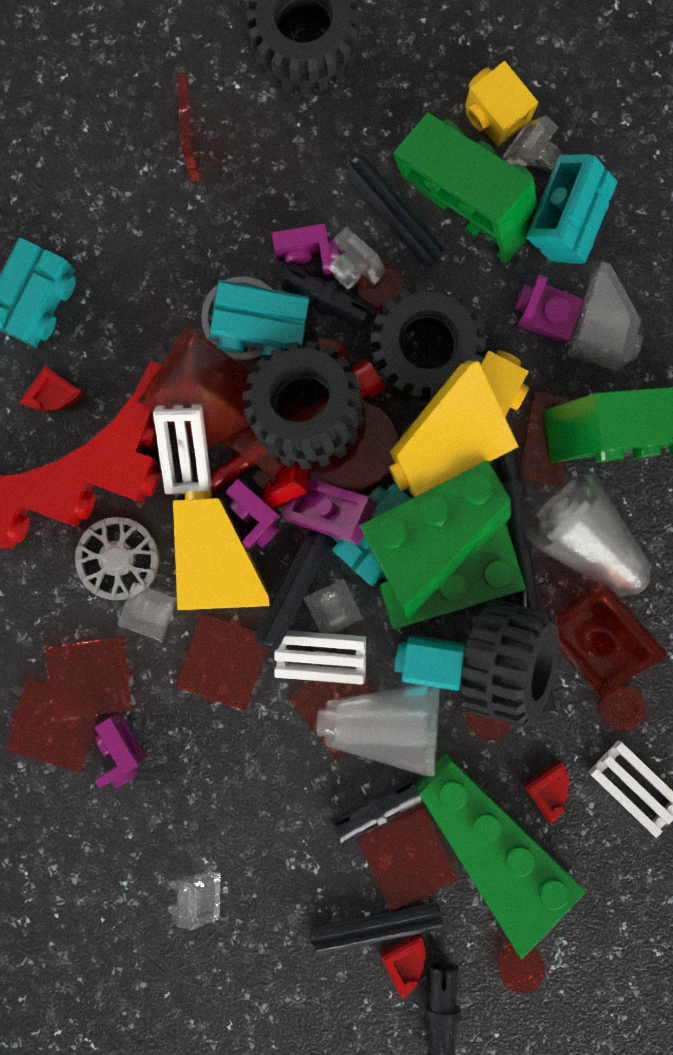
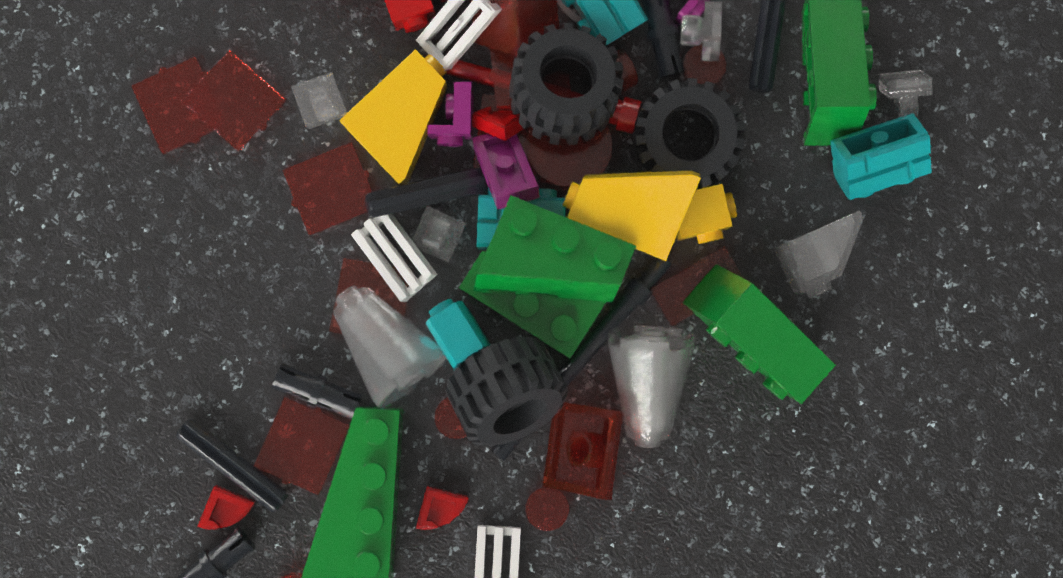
camera: 50 degrees right, 0 degrees up
(115, 557) = (339, 44): light grey wheel -> none
(119, 743) = (206, 163): magenta bracket -> none
(197, 899) = (142, 315): clear tile -> none
(499, 103) = (915, 36): yellow brick -> none
(548, 310) = (793, 204): magenta bracket -> none

